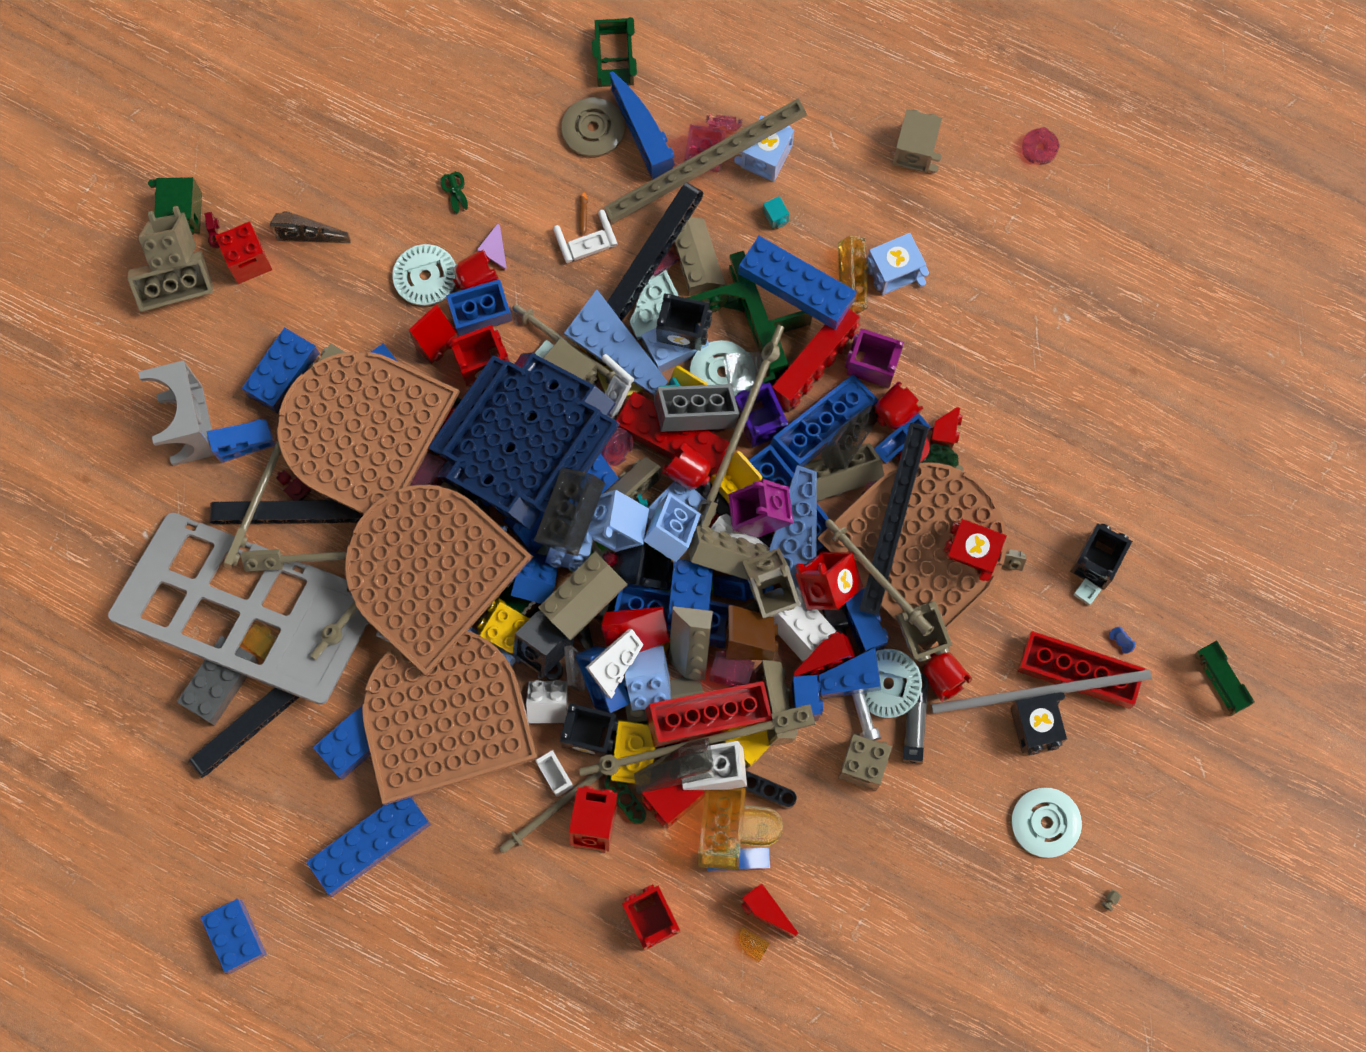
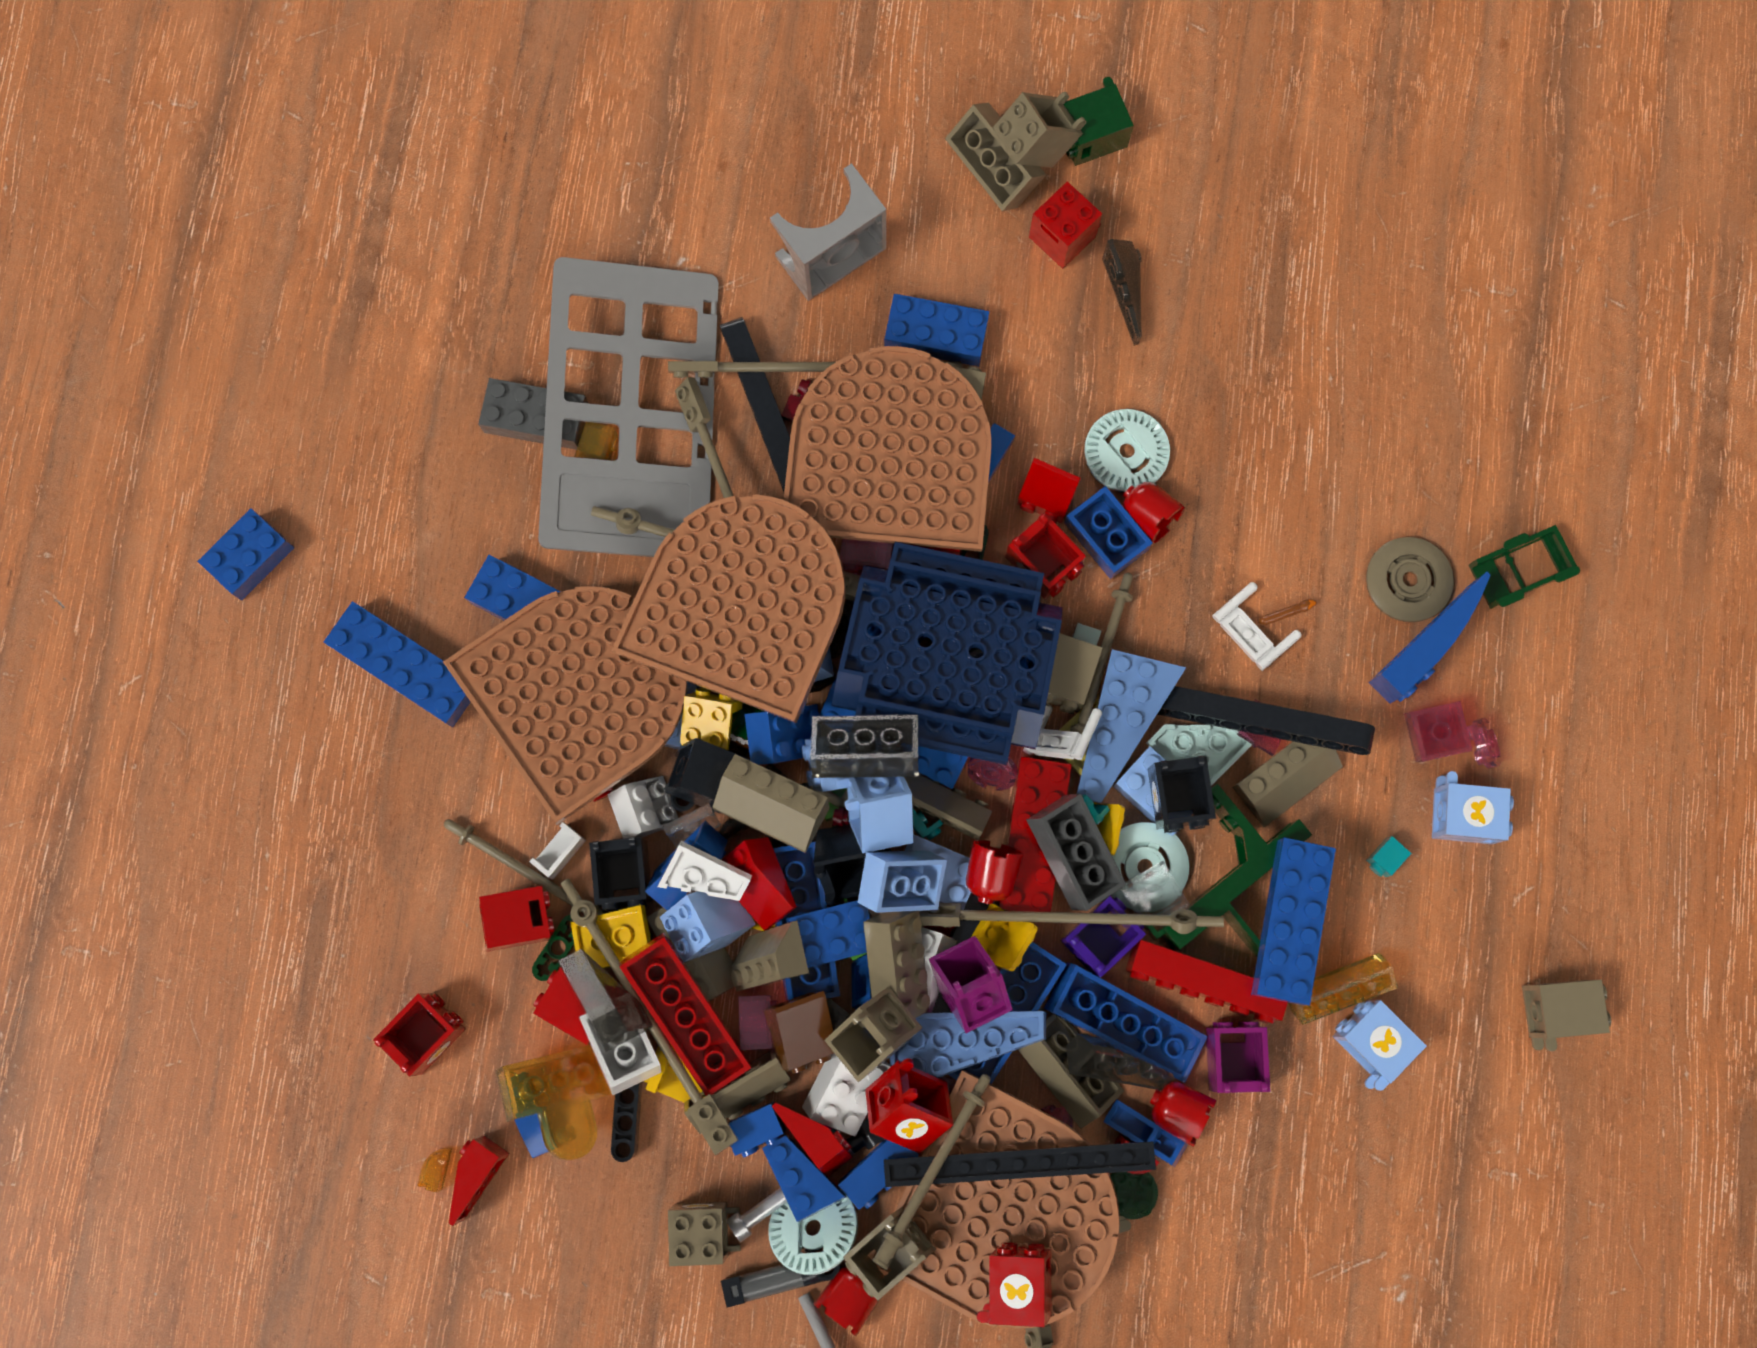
camera: 70 degrees right, 5 degrees up
(212, 225) = (1086, 176): dark red plate -> none
(240, 440) = (831, 318): blue wedge -> none
(241, 731) = (480, 463): black beam -> none
(457, 195) = (1248, 447): dark green piece -> none
(494, 247) = (1197, 519): lavender tile -> none
(705, 160) = (1420, 743): dark tan plate -> none
(945, 429) = (1177, 1186): red slope -> none
(1042, 136) = (1647, 1178): clear pink plate -> none

